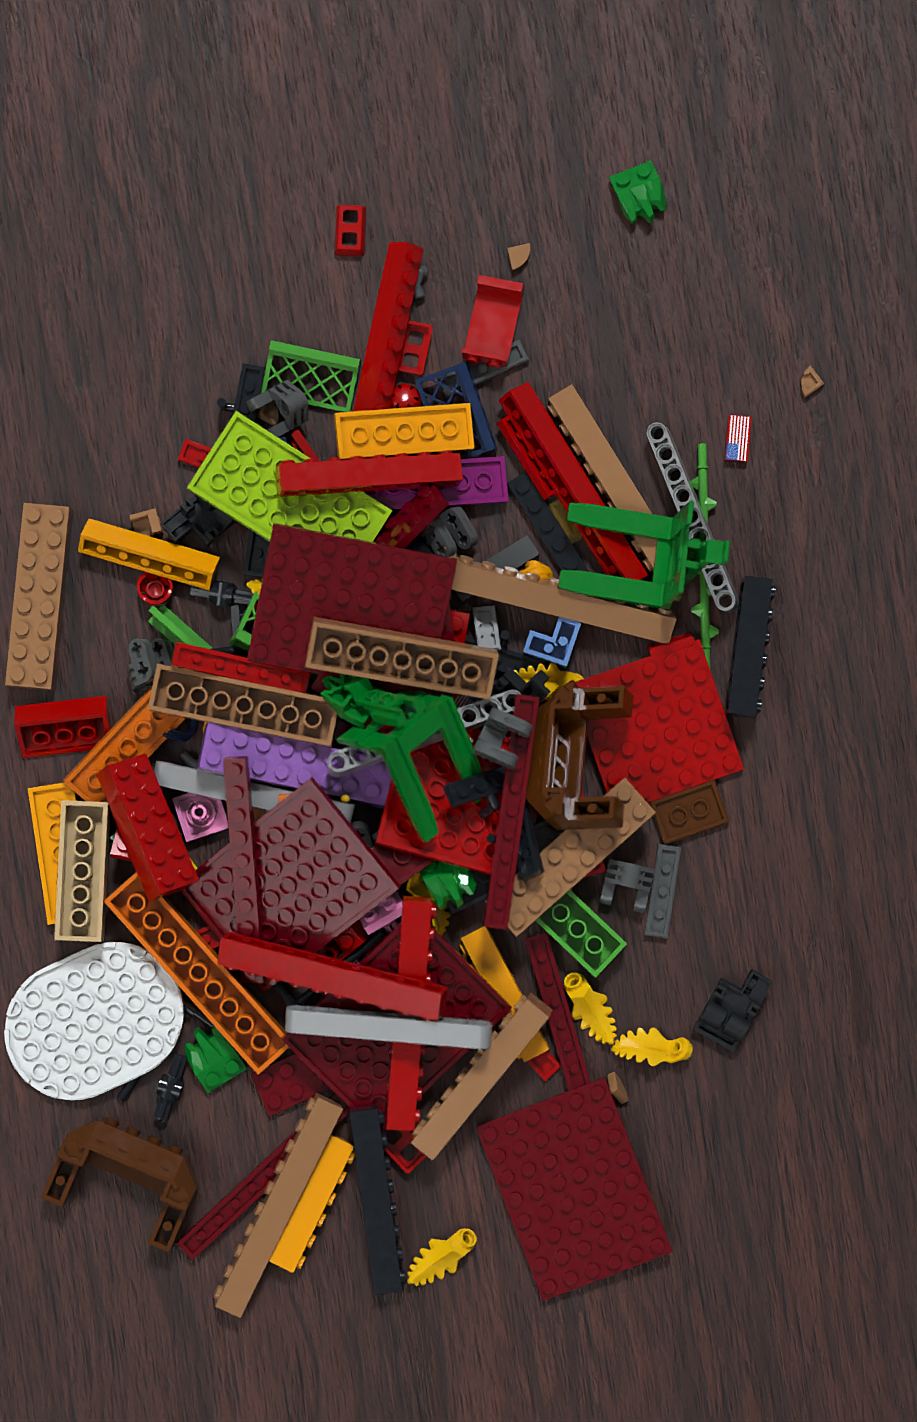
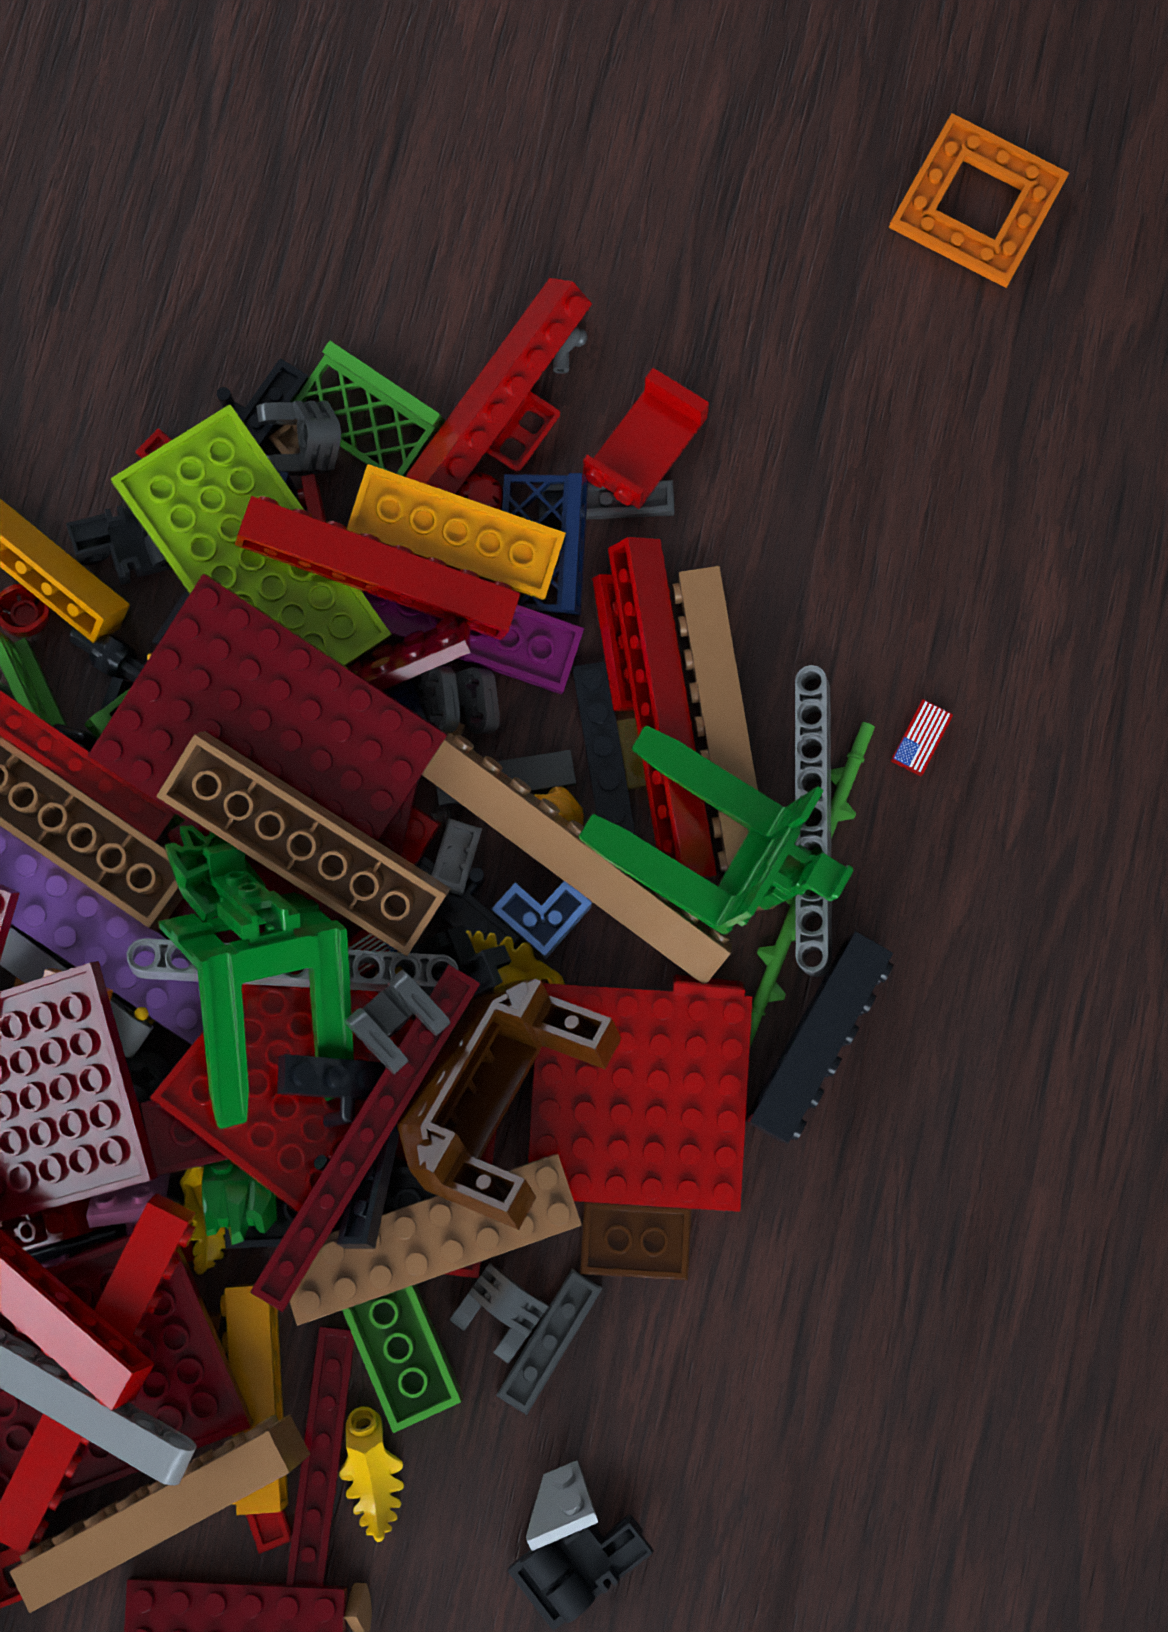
camera: 20 degrees right, 5 degrees down
(147, 522) = (52, 517): medium nougat panel -> none
(358, 228) = (516, 245): red piece -> none
(518, 255) = (719, 368): medium nougat tile -> none
(639, 192) = (920, 349): green plate -> none
(641, 45) = (999, 158): none -> orange plate
(653, 1047) = (435, 1572): yellow plant -> none
(709, 979) = (561, 1506): none -> light grey wing
(810, 381) = (1055, 701): medium nougat tile -> none

